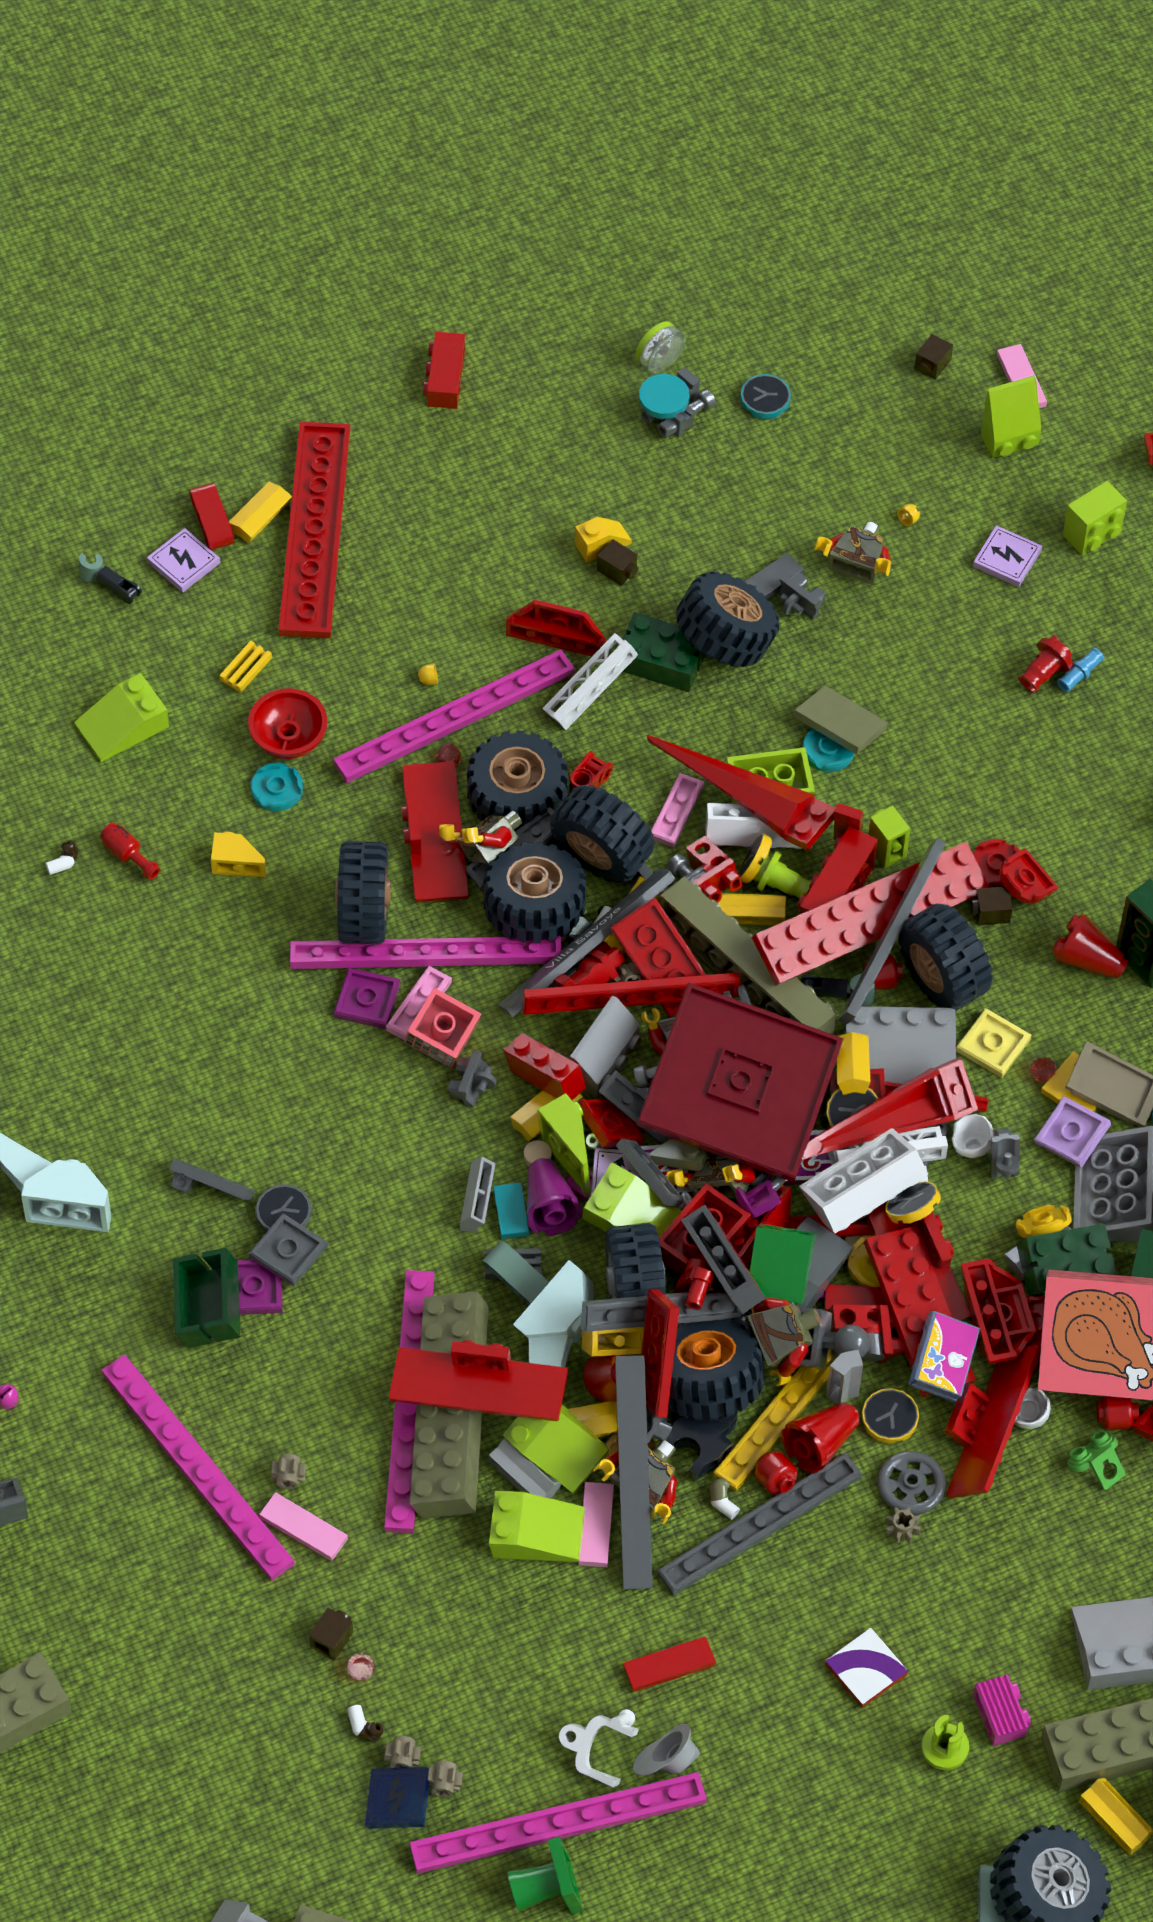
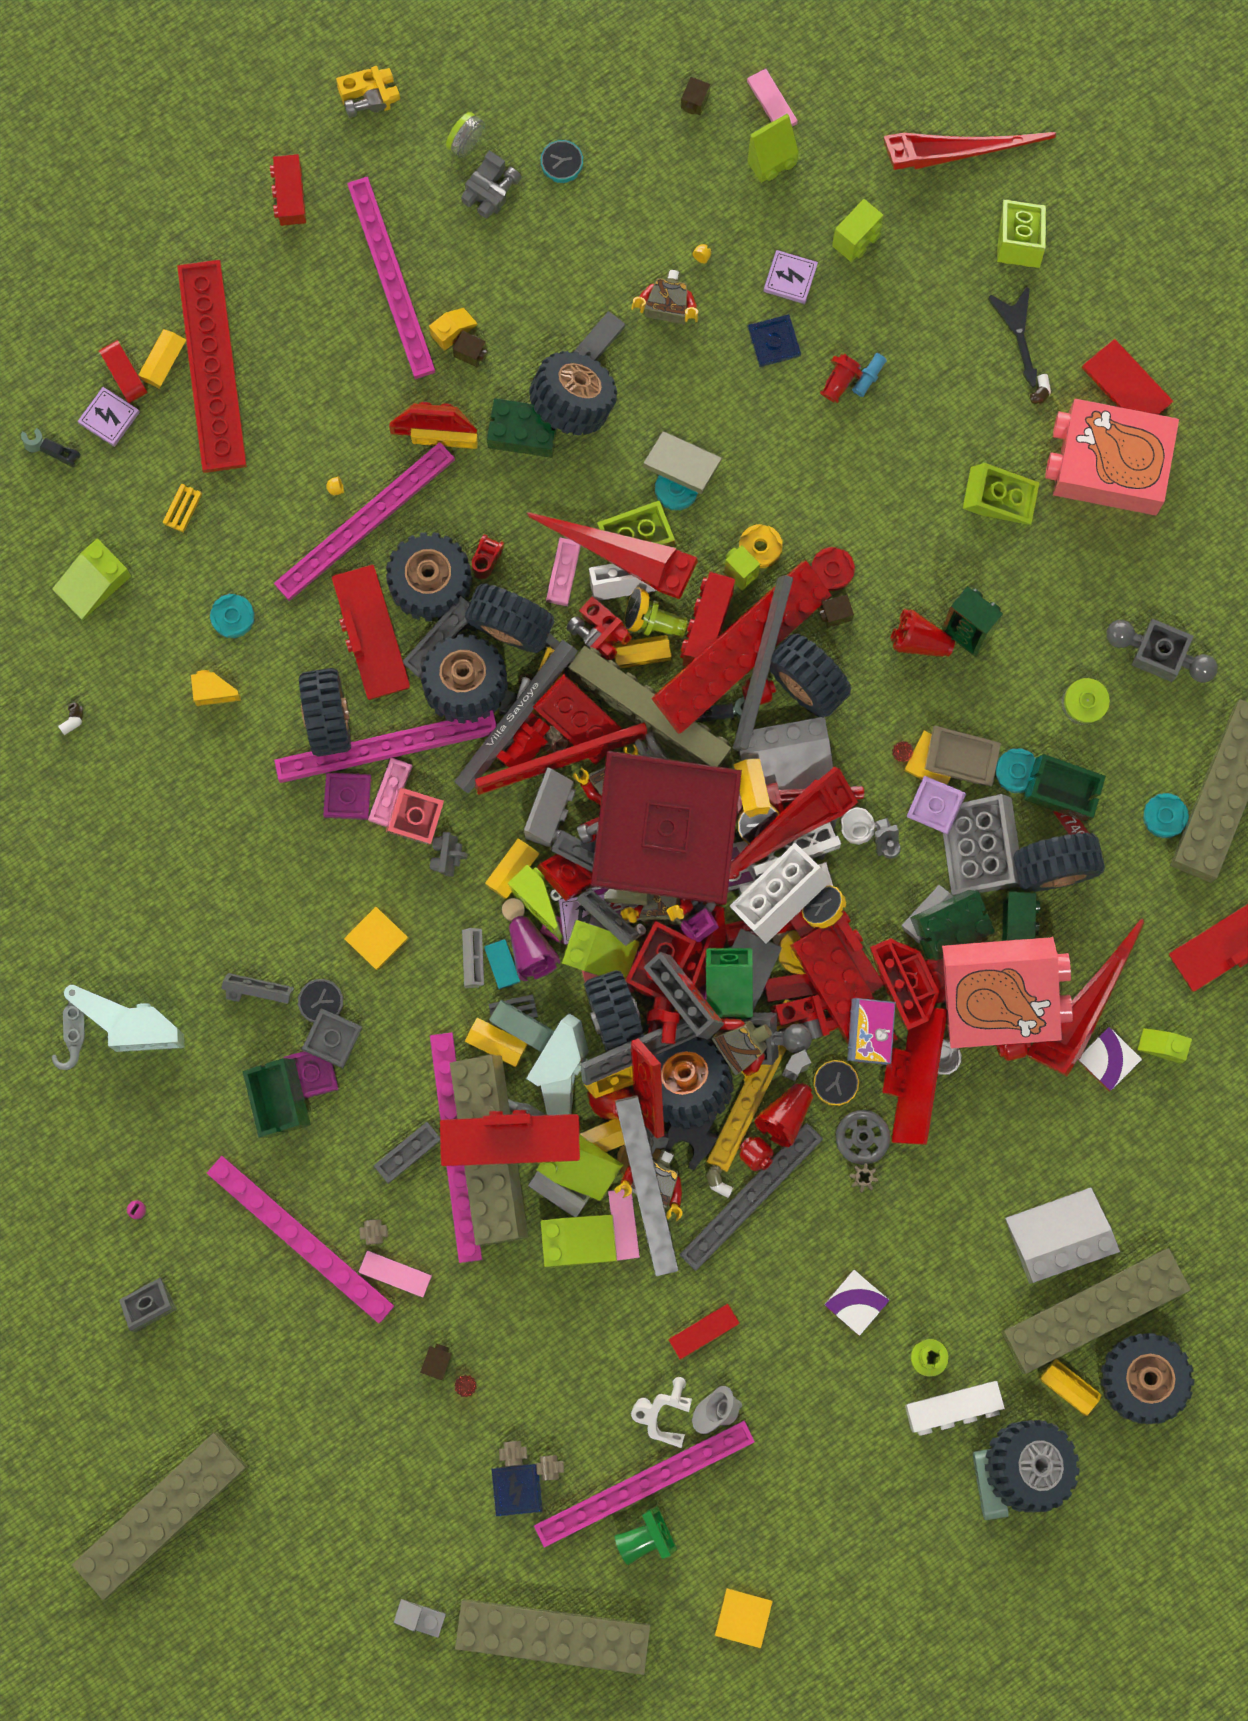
camera: 10 degrees left, 20 degrees up
(127, 848) = (121, 699): red piece -> none
(287, 713) = (221, 550): red hat -> none
(349, 1393) = (407, 1152): none -> dark grey plate
(362, 1728) = (478, 1435): arm -> none
(366, 1155) = (376, 938): none -> yellow tile
(448, 754) = (367, 557): clear red piece -> none
(486, 839) = (414, 638): torso -> none
(501, 1300) = (496, 1042): none -> yellow piece
(542, 478) = (391, 278): none -> dark pink plate
(544, 1067) = (504, 838): red brick -> none
(562, 283) = (370, 85): none -> yellow hips
(573, 648) = (446, 438): none -> yellow tile
(593, 684) = (474, 473): white fence -> none
(664, 396) = (478, 184): teal tile -> none
(797, 598) = (625, 354): dark grey hips -> none
(846, 816) = (707, 566): red tile -> none
(930, 818) = (769, 537): none -> yellow tile
(965, 1808) = (953, 1407): none -> white brick
(975, 617) = (774, 340): none -> clear blue tile
(993, 1043) = (858, 734): light yellow tile -> none
(1000, 1710) = (967, 1319): dark pink brick -> none
(1026, 878) = (859, 581): red tile -> none
(1043, 1221) = (927, 892): yellow tile -> none
(1094, 1454) = (1002, 1085): bright green bracket -> none

